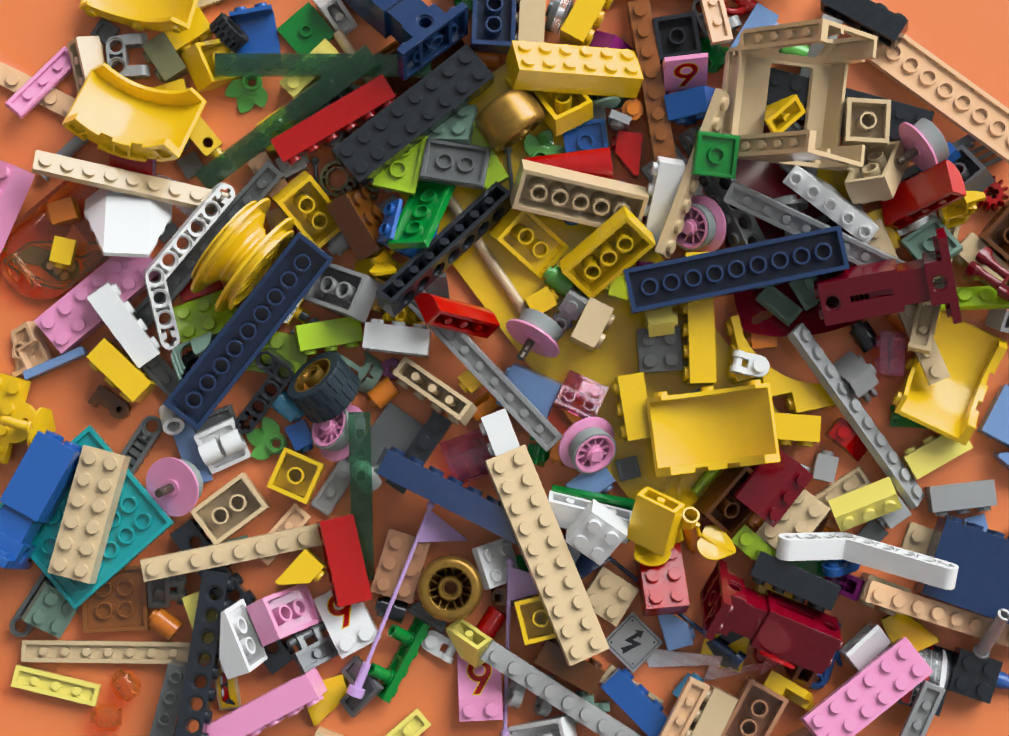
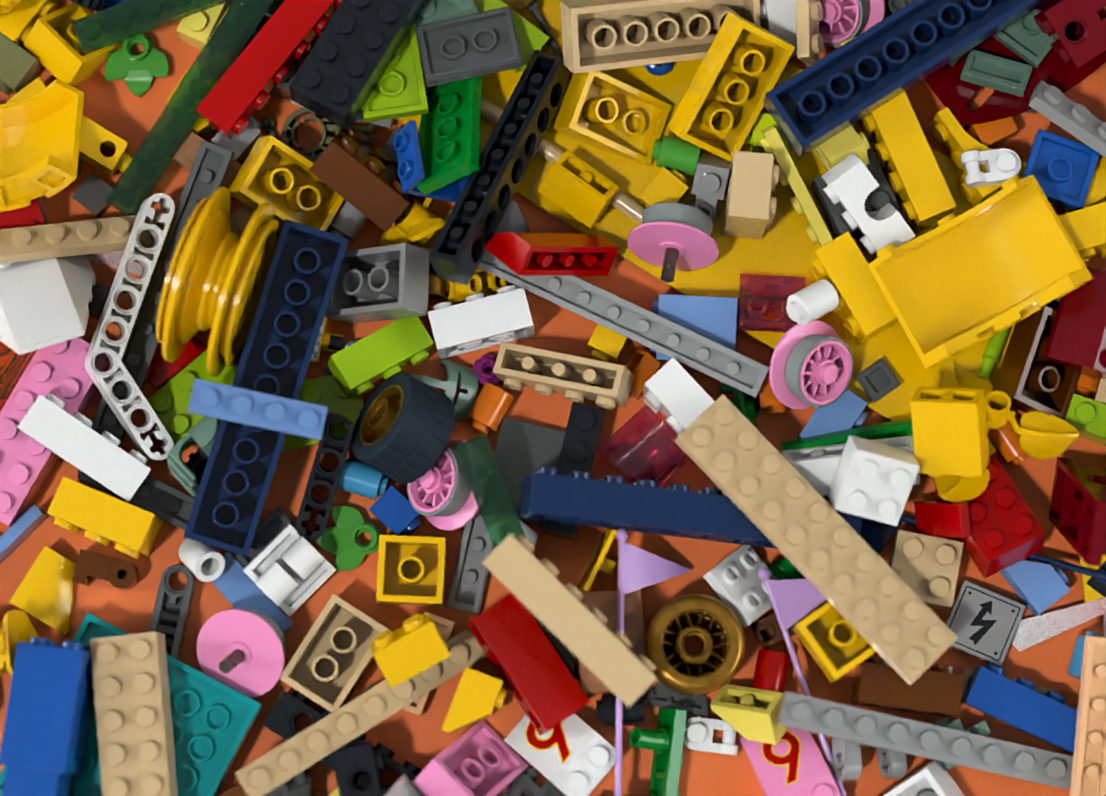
camera: 20 degrees left, 5 degrees down
(71, 401) = (48, 590): none -> yellow slope
(236, 344) = (257, 409): none -> medium blue brick
(274, 525) = (408, 649): none -> yellow slope
(377, 547) = (570, 620): none -> tan brick
(411, 514) = (597, 561): none -> yellow piece
(489, 278) = (578, 188): none -> yellow brick
(603, 407) = (812, 302): none -> white brick
(622, 321) = (789, 175): none -> light yellow plate
(631, 571) = (942, 518): none -> red tile
(654, 345) = (850, 185): none -> white arch
(791, 382) = (1061, 168): none -> blue plate

